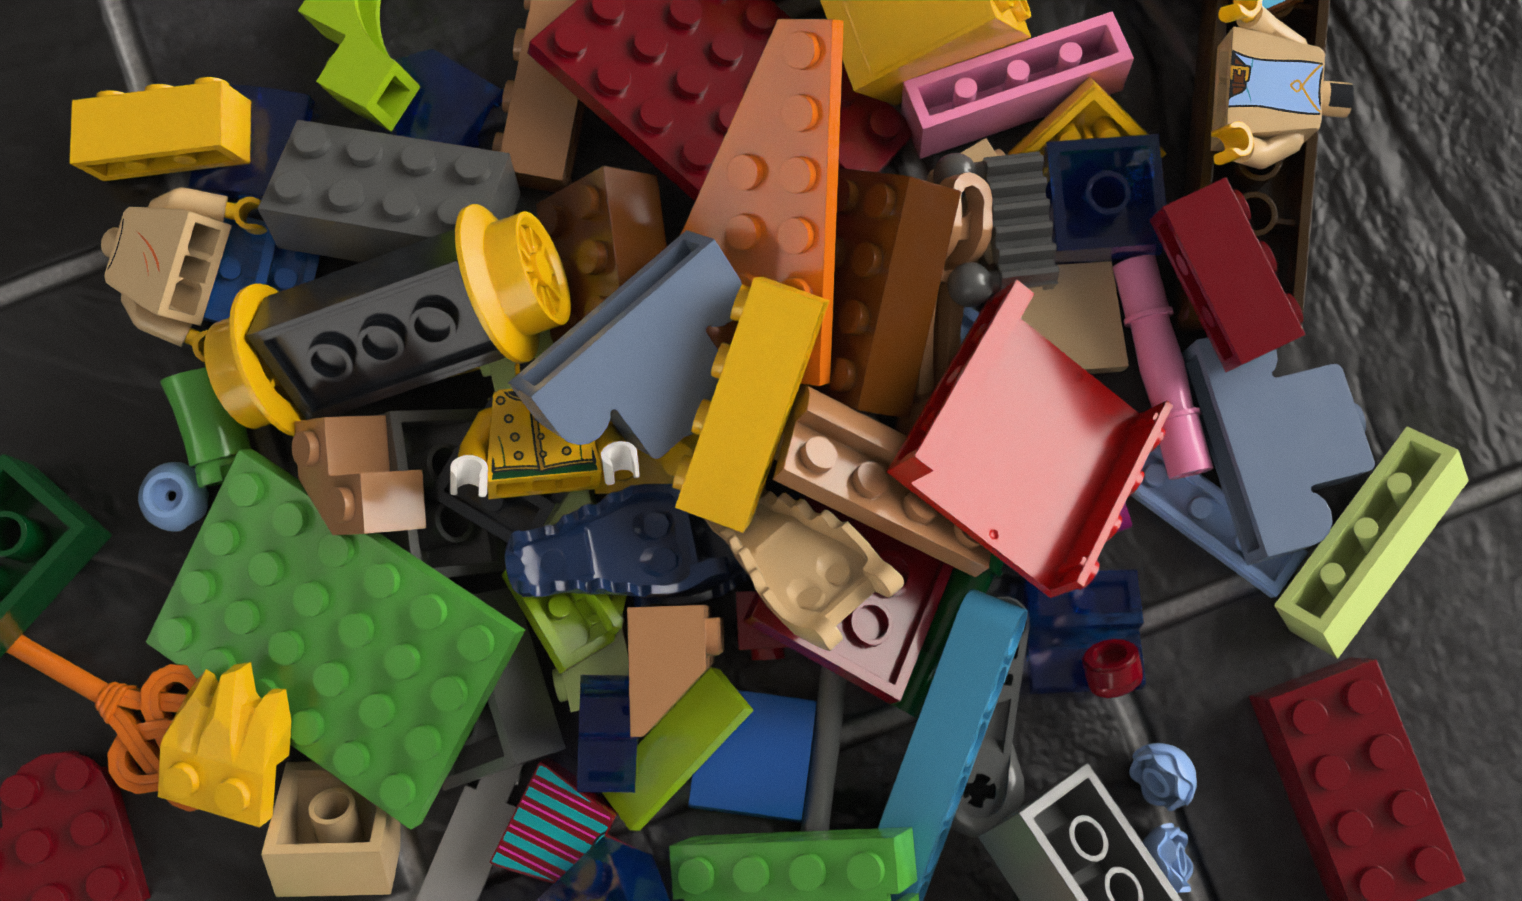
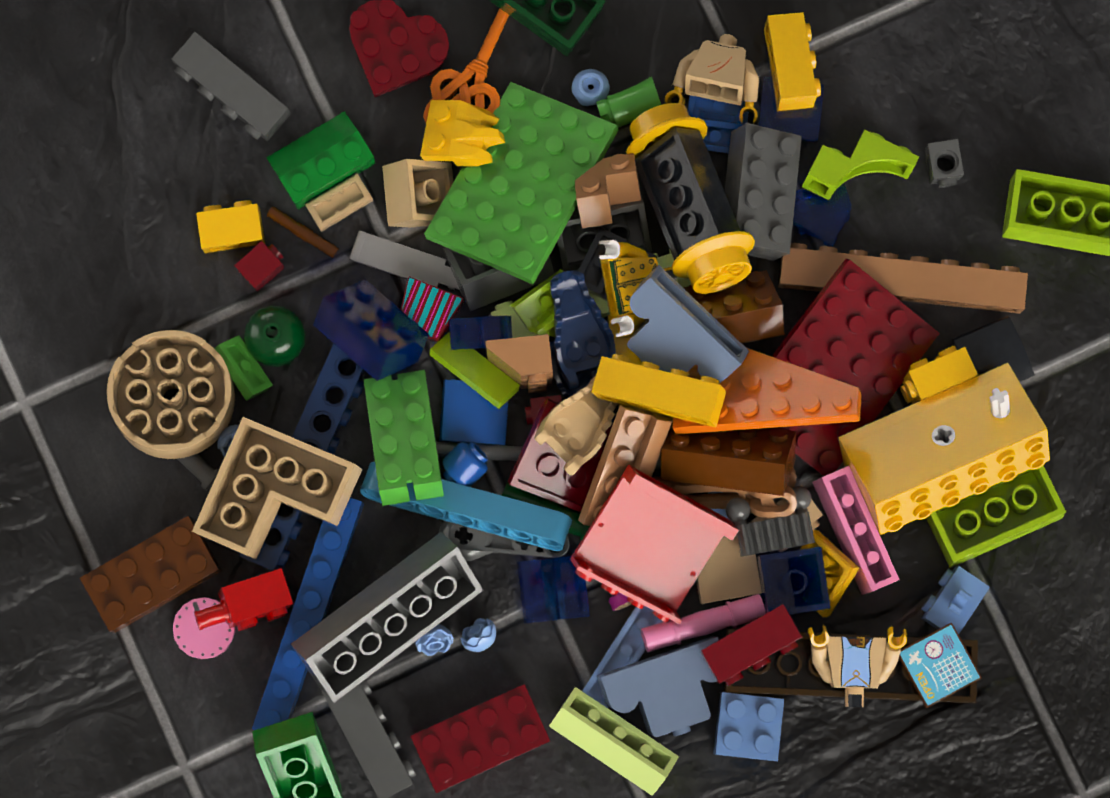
camera: 80 degrees right, 0 degrees up
(851, 780) = (465, 464): none -> blue head
(1112, 668) = (534, 602): dark red tile -> none
(1360, 301) = (748, 726): none -> medium blue brick

